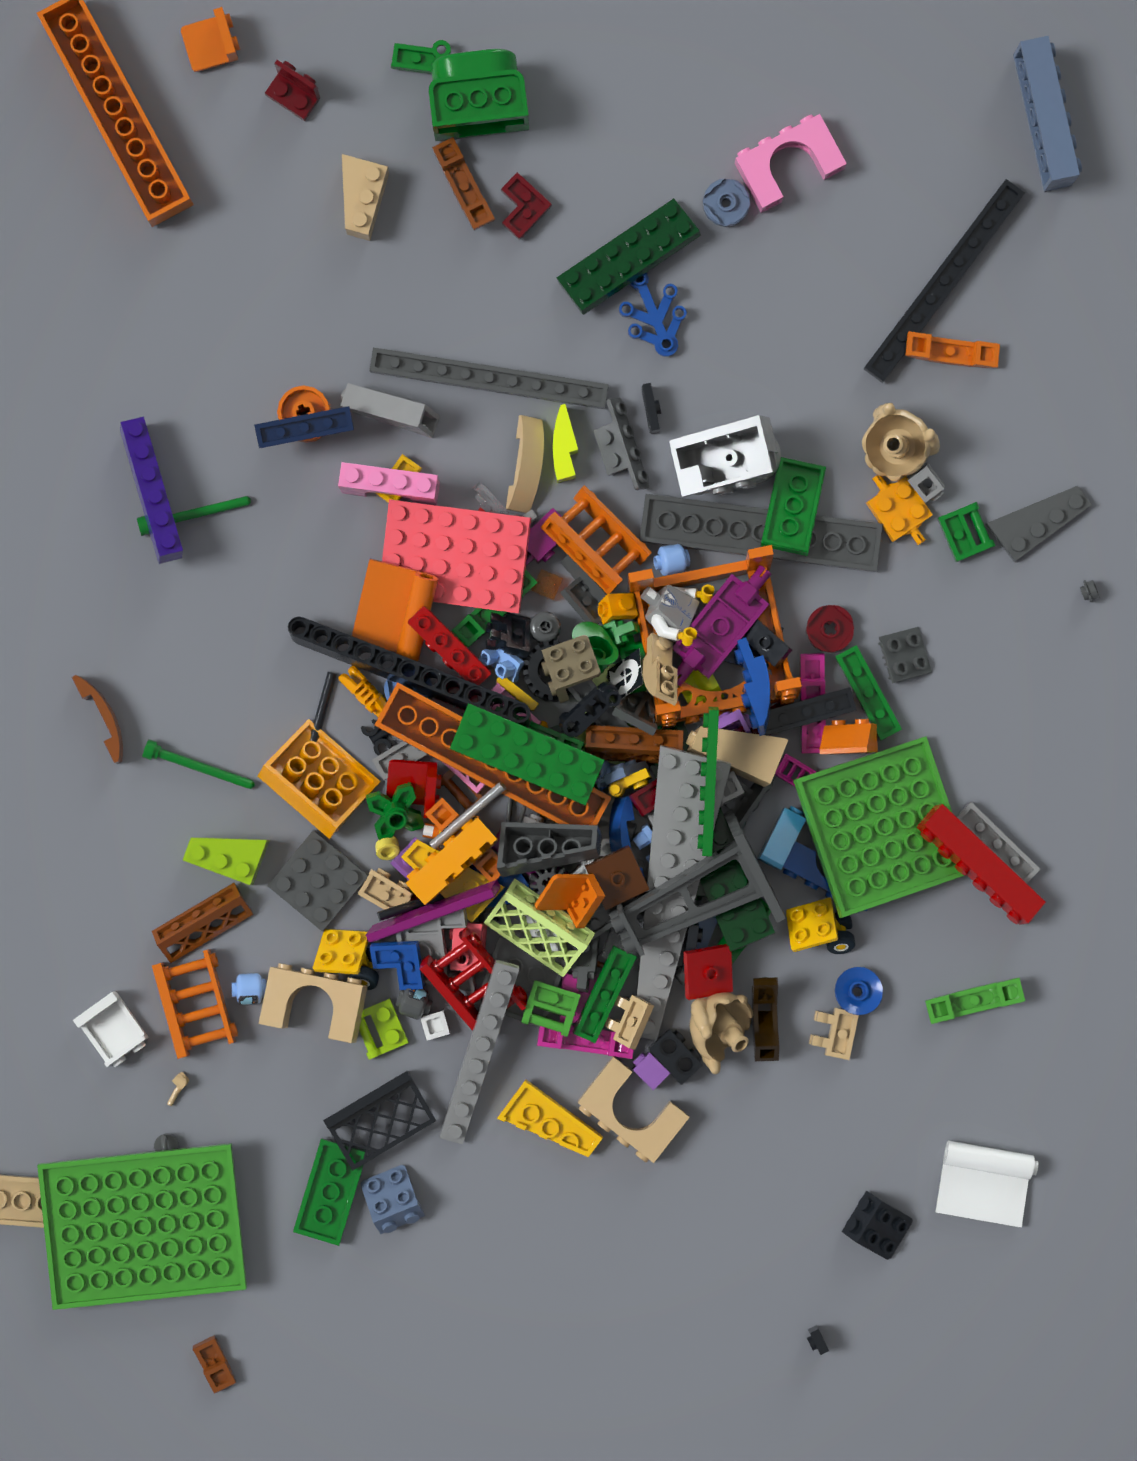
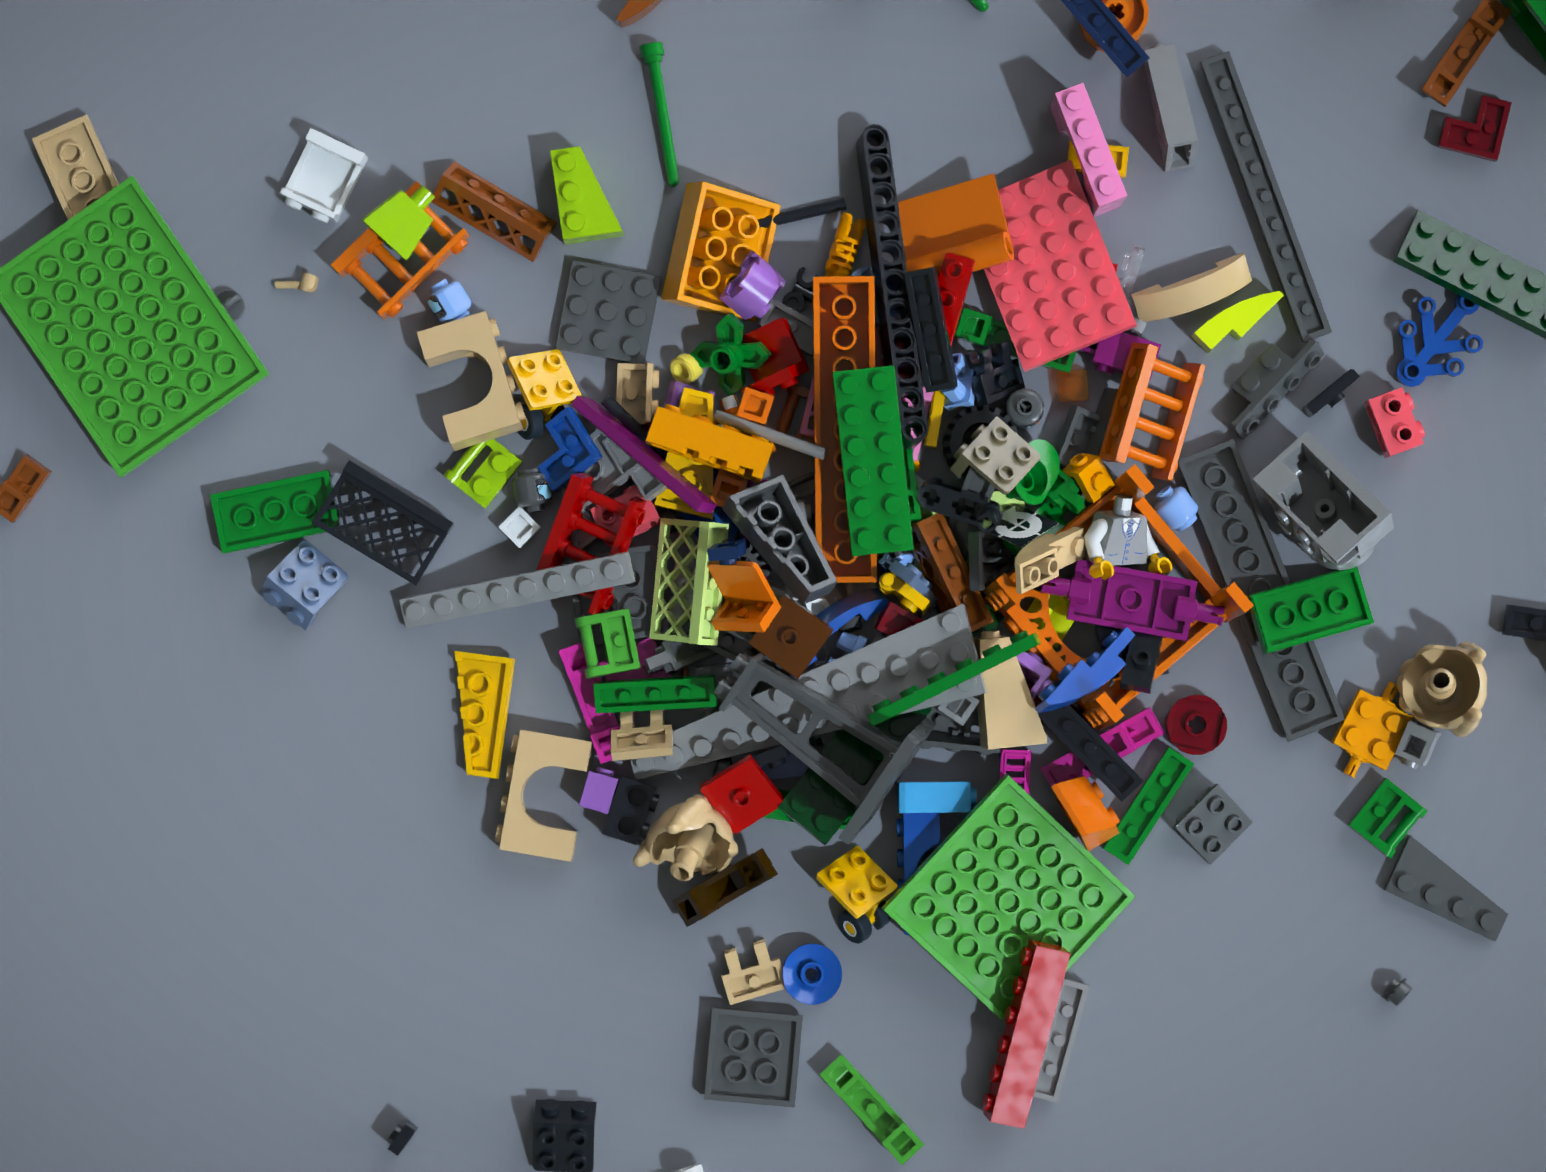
camera: 60 degrees right, 0 degrees up
(174, 991) = (401, 220): none -> lime torso
(356, 769) = (752, 287): none -> medium lavender cylinder
(455, 662) = (931, 329): none -> black plate
(534, 890) = (727, 551): none -> dark blue plate
(695, 380) = (1390, 424): none -> coral brick
(894, 1063) = (753, 1057): none -> dark grey plate

